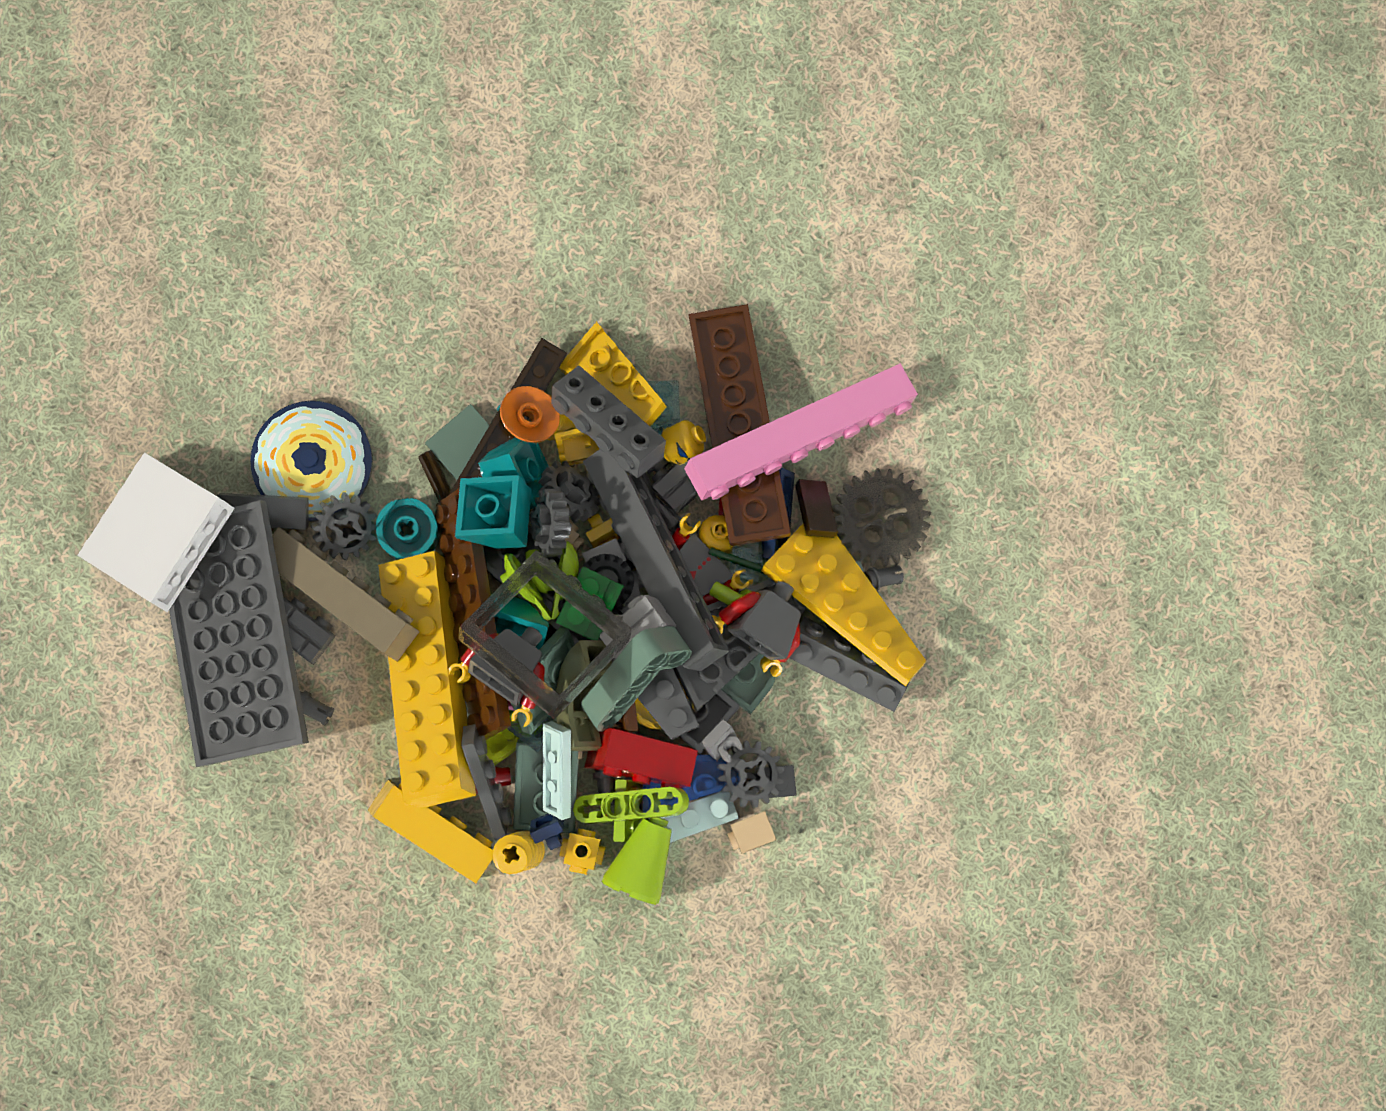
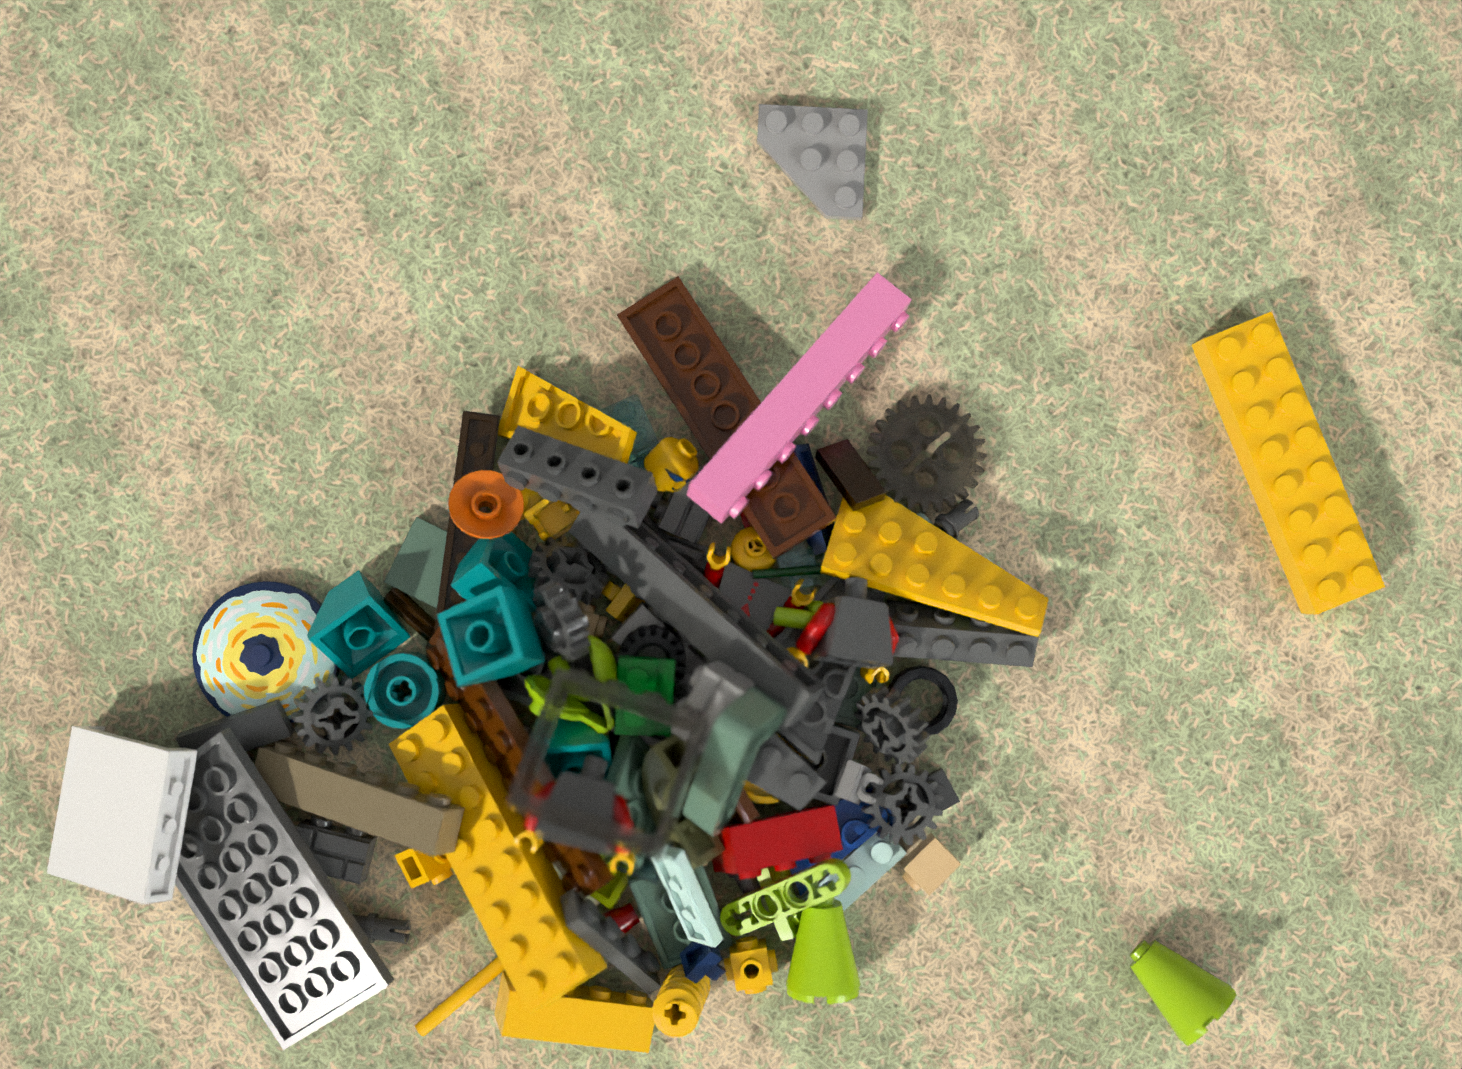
camera: 20 degrees left, 5 degrees up
(349, 784) = (459, 997): none -> yellow bar
(367, 666) = (422, 868): none -> yellow brick
(390, 467) = (356, 626): none -> teal slope
(767, 708) = (891, 725): none -> dark grey gear
(793, 682) = (947, 689): none -> black tyre
(895, 256) = (819, 153): none -> light grey plate
(906, 1009) = (1181, 989): none -> lime cone
(1156, 640) = (1288, 465): none -> yellow brick

